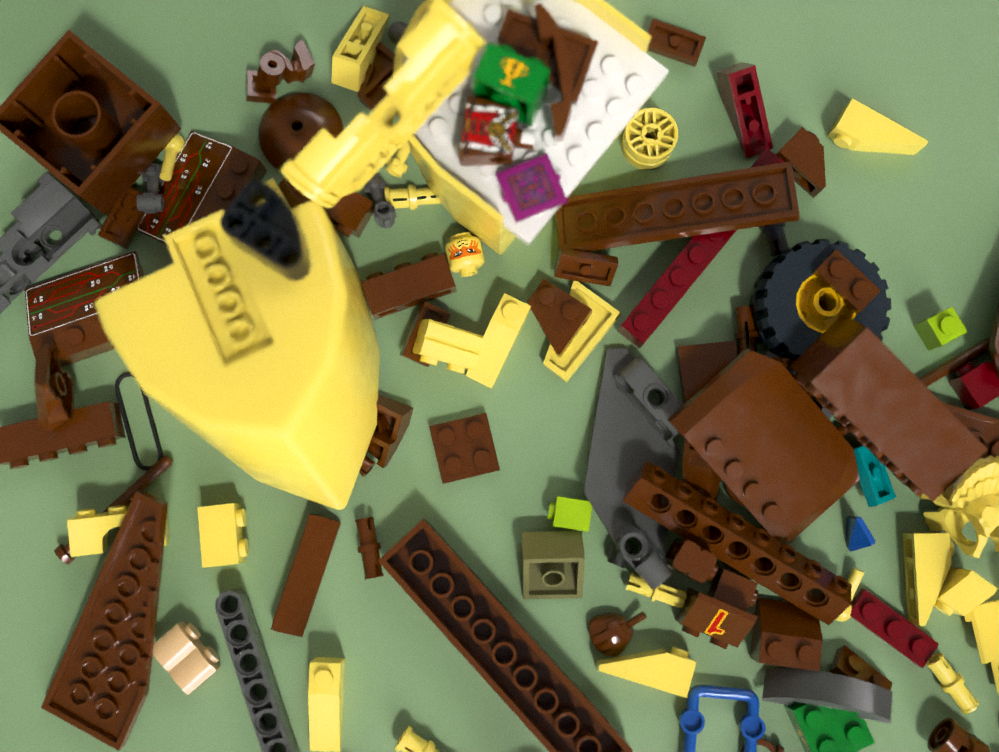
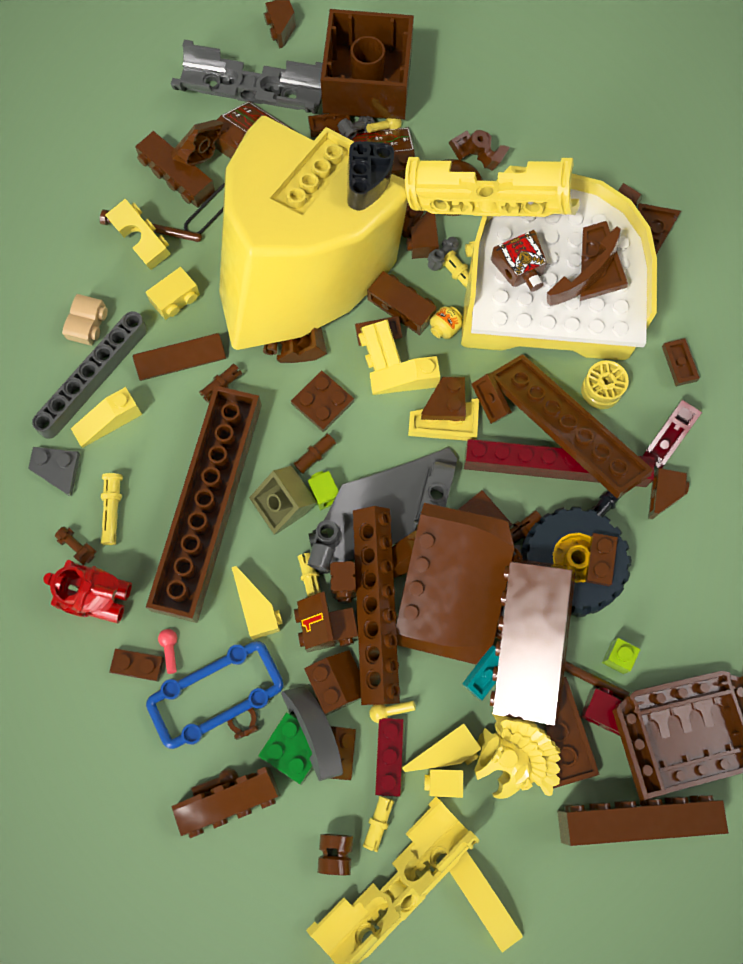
camera: 60 degrees right, 10 degrees down
(111, 650) = (56, 275): reddish brown wing -> none
(512, 81) = (561, 247): green brick -> none
(521, 496) = (314, 453): none -> reddish brown pin
(531, 188) = (506, 307): piece -> none
(612, 632) = (263, 567): reddish brown piece -> none
(857, 534) = (437, 690): blue slope -> none
(869, 131) = (720, 523): light yellow slope -> none

